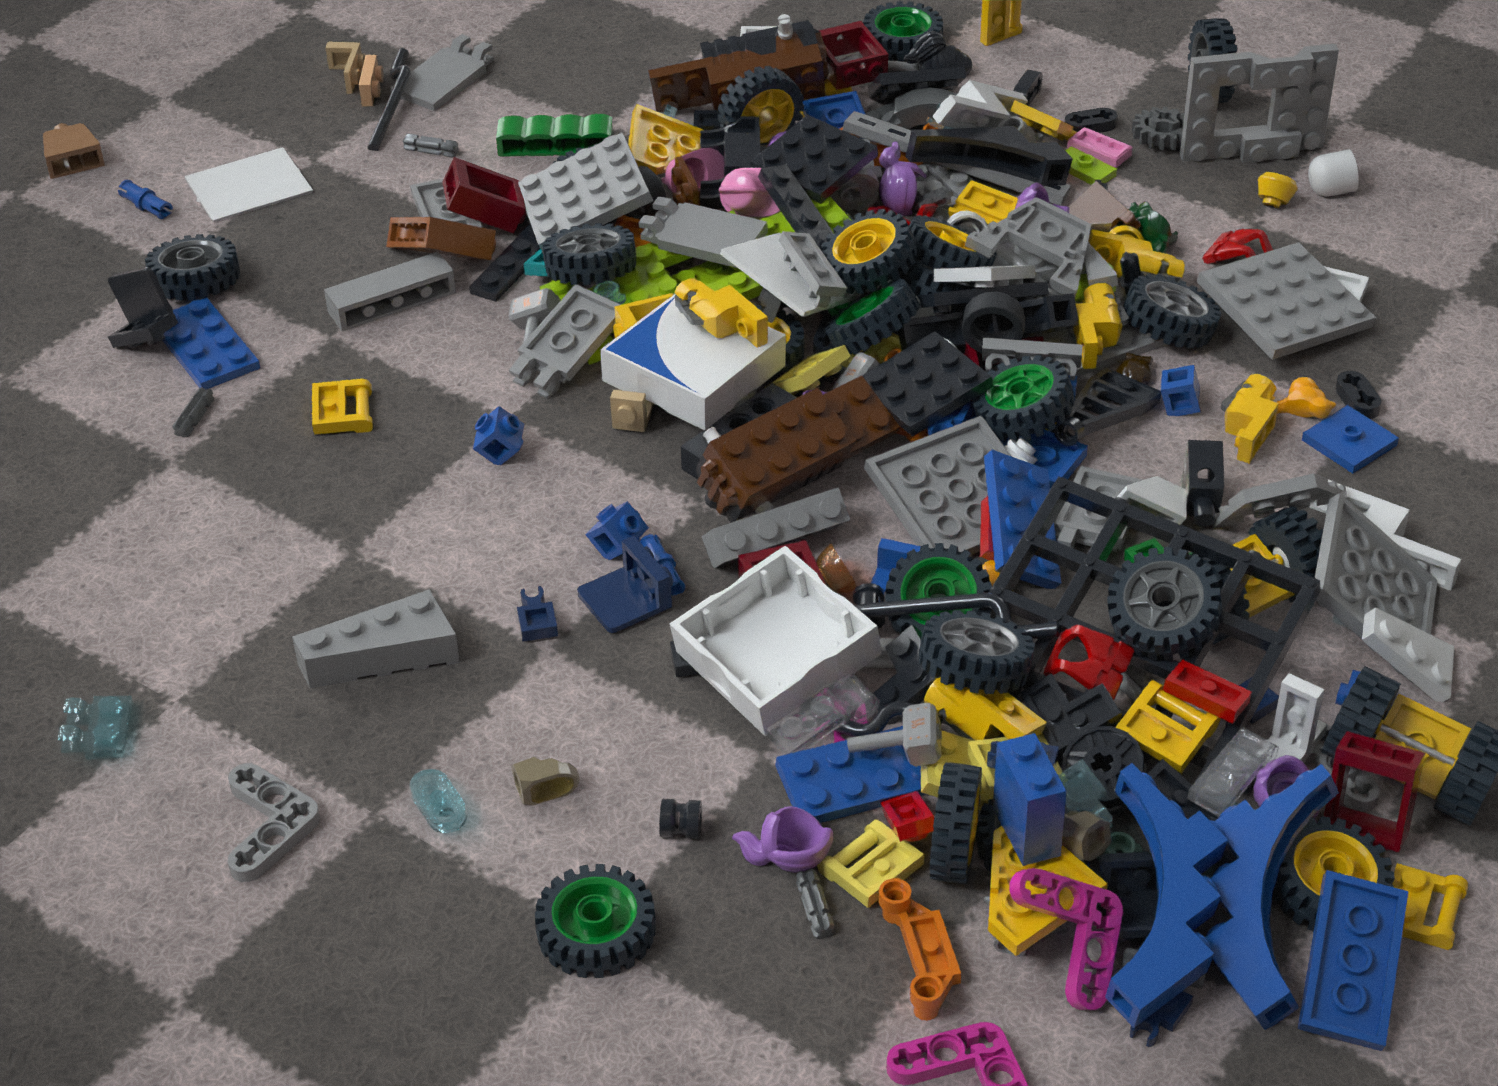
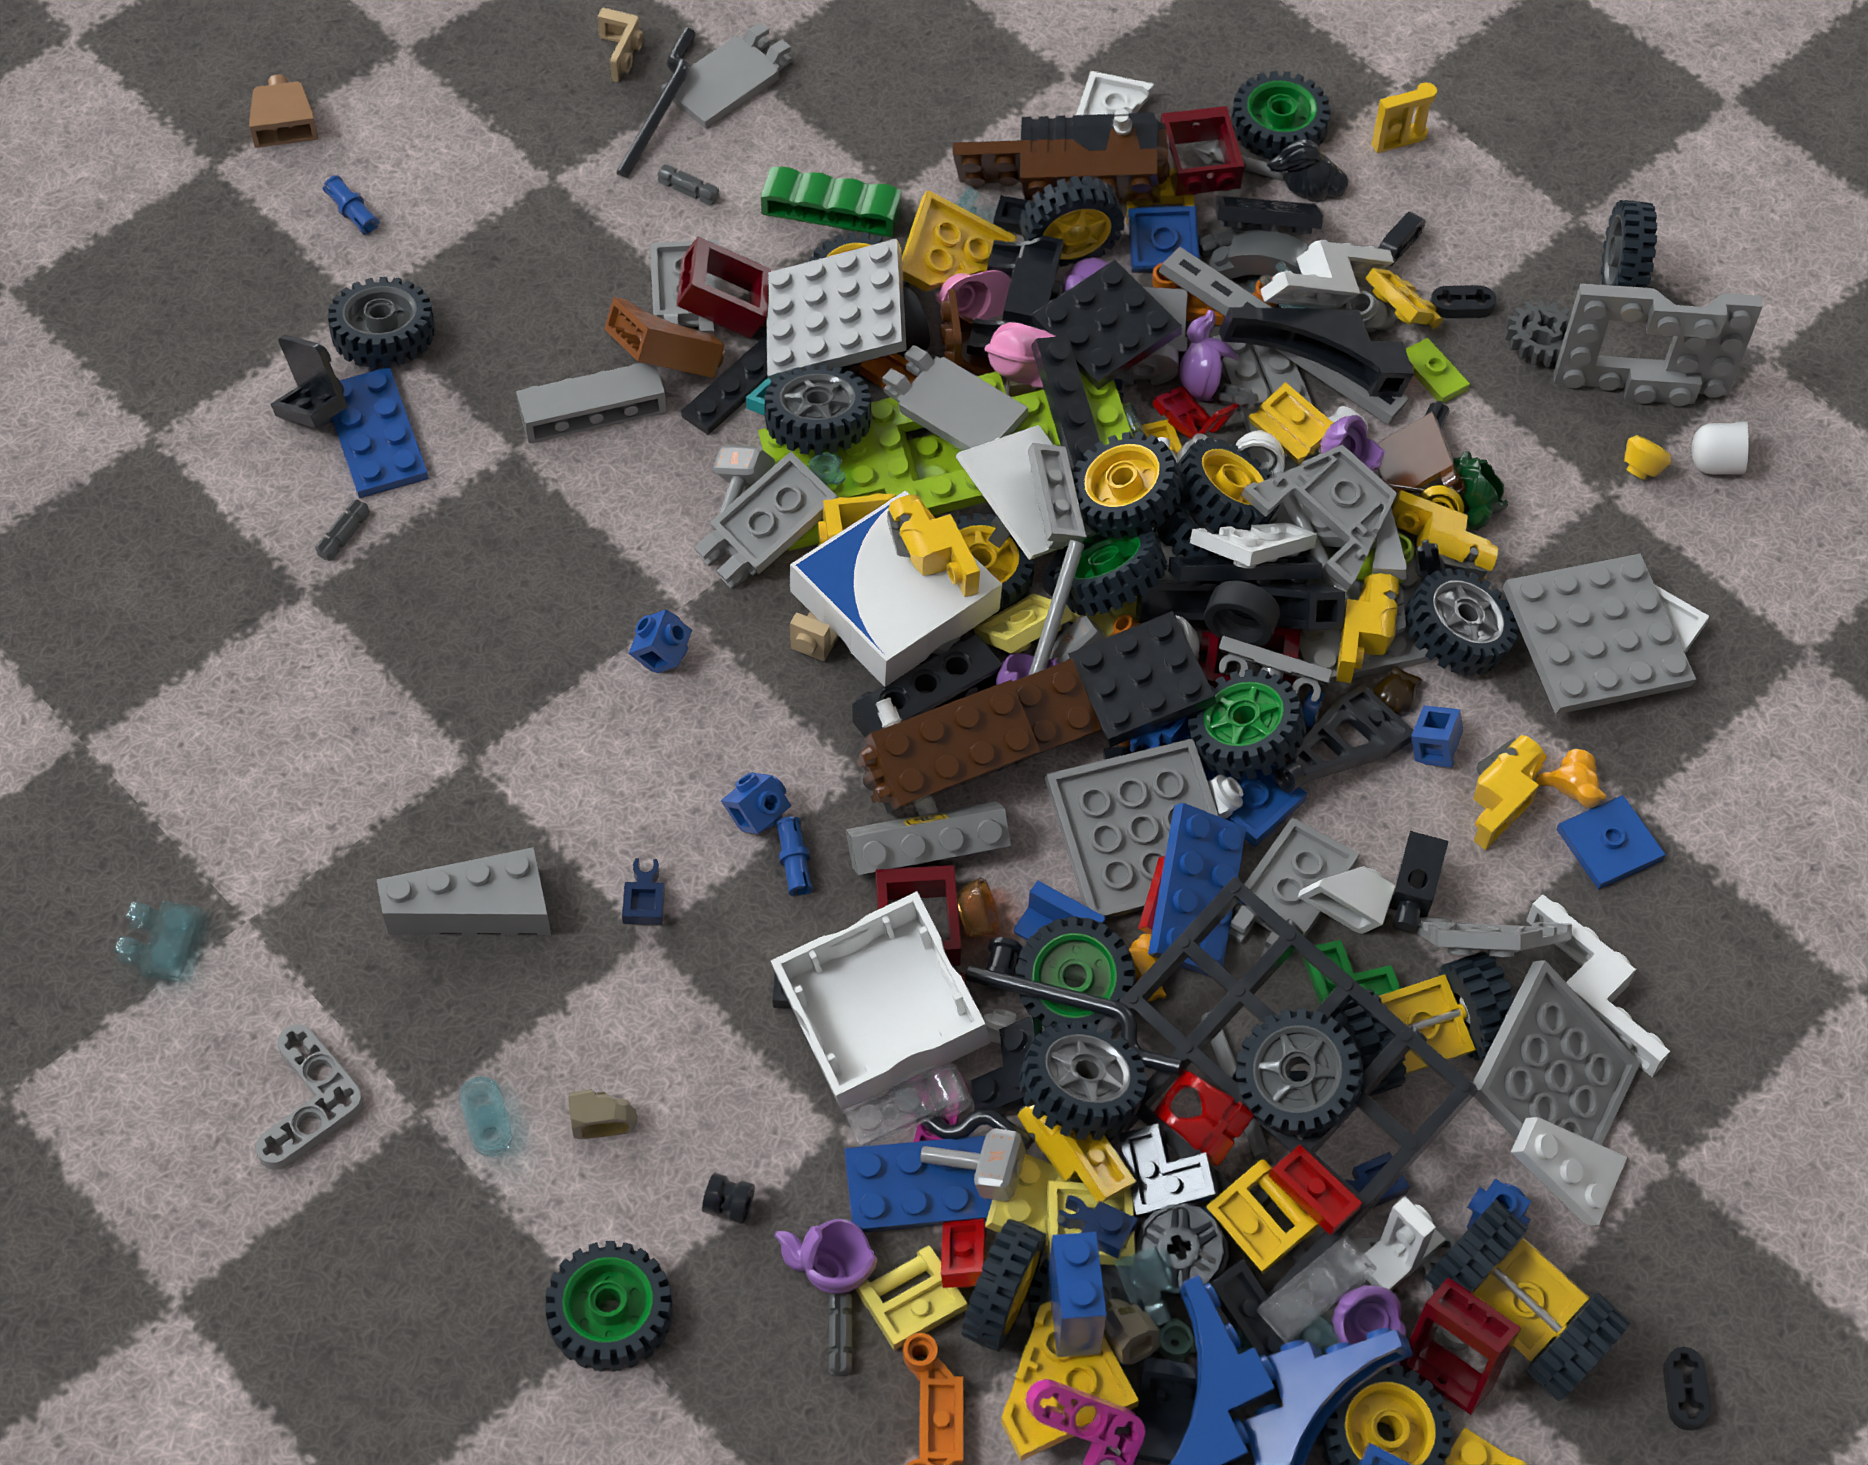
camera: 10 degrees right, 15 degrees up
(248, 184) = (471, 201): white piece -> none
(330, 407) = (491, 553): yellow plate -> none
(369, 80) = (637, 78): light nougat plate -> none
(630, 592) = (748, 884): dark blue bracket -> none
(837, 339) = (1057, 606): none -> light grey bar
(1100, 147) = (1460, 346): bright pink plate -> none
(1232, 245) = (1561, 532): red piece -> none
(1364, 392) = (1649, 780): black beam -> none

